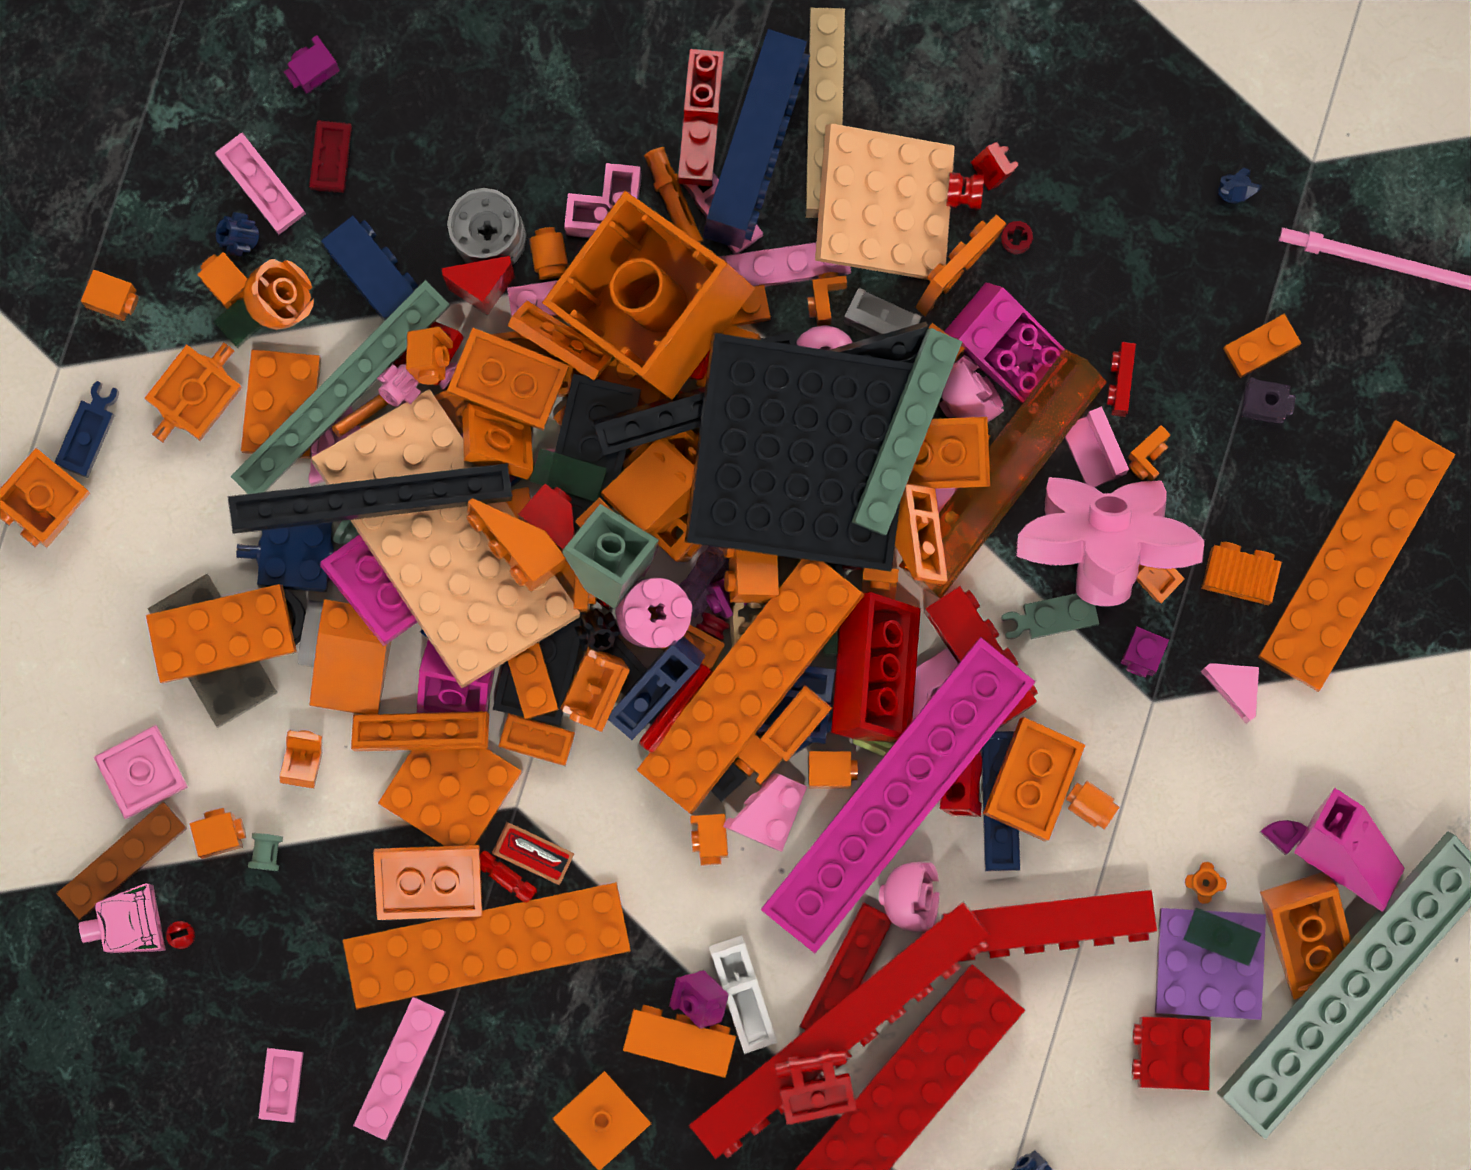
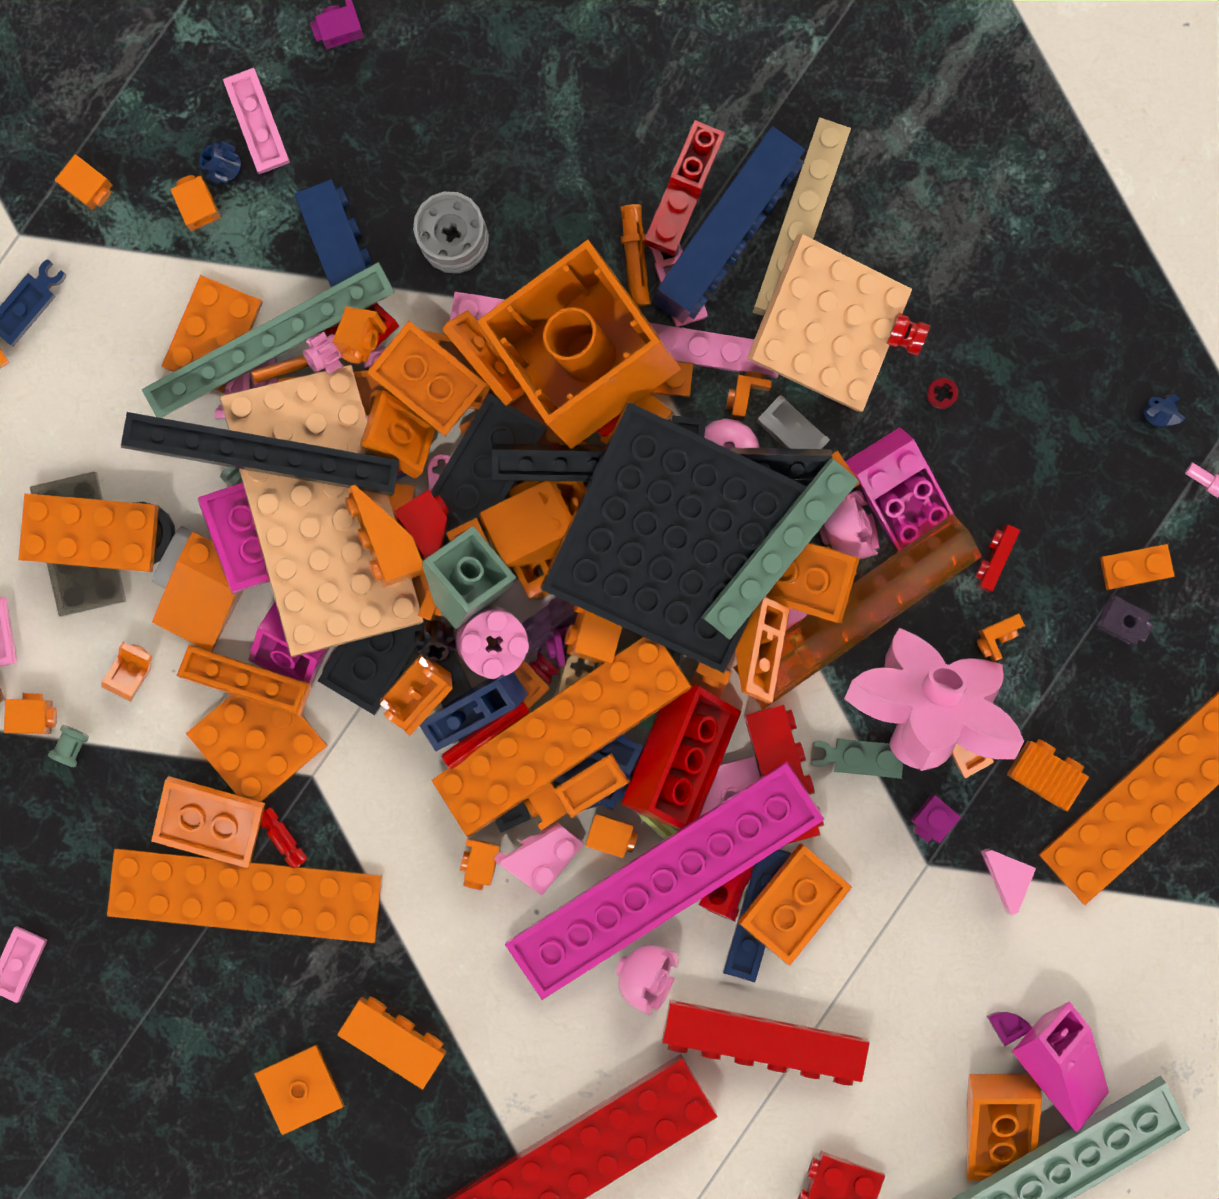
camera: 15 degrees right, 5 degrees up
(193, 392) = (133, 298): orange plate -> none
(237, 324) = (196, 246): clear green tile -> none
(278, 294) = (239, 232): orange cylinder -> none
(292, 556) = (176, 482): dark blue plate -> none
(330, 156) = (329, 116): dark red plate -> none
(399, 1068) = (130, 982): bright pink plate -> none
(480, 281) = (431, 279): red slope -> none
(533, 682) = (361, 670): orange plate -> none
(533, 853) = (313, 825): slope -> none
(536, 739) = (349, 721): orange plate -> none
(548, 253) = (503, 271): orange brick -> none
(568, 474) = (454, 487): clear green plate -> none
(587, 212) = (549, 245): bright pink brick -> none
(699, 998) = (422, 1009): magenta brick -> none
(744, 994) = (464, 1015): white slope -> none
(816, 1097) = (500, 1138): red plate -> none
(845, 1026) = (542, 1080): red brick -> none
(850, 962) = (565, 1025): red tile -> none
(944, 277) = (884, 398): orange wing -> none
(993, 165) = (942, 319): red tile -> none
(1092, 804) = (840, 944): orange brick -> none
(1096, 449) = (951, 615): bright pink panel -> none
(1202, 982) = (901, 1123): medium lavender plate -> none
(1206, 872) = (918, 1057): orange plate -> none
(1222, 937) = (920, 1105): clear green plate -> none

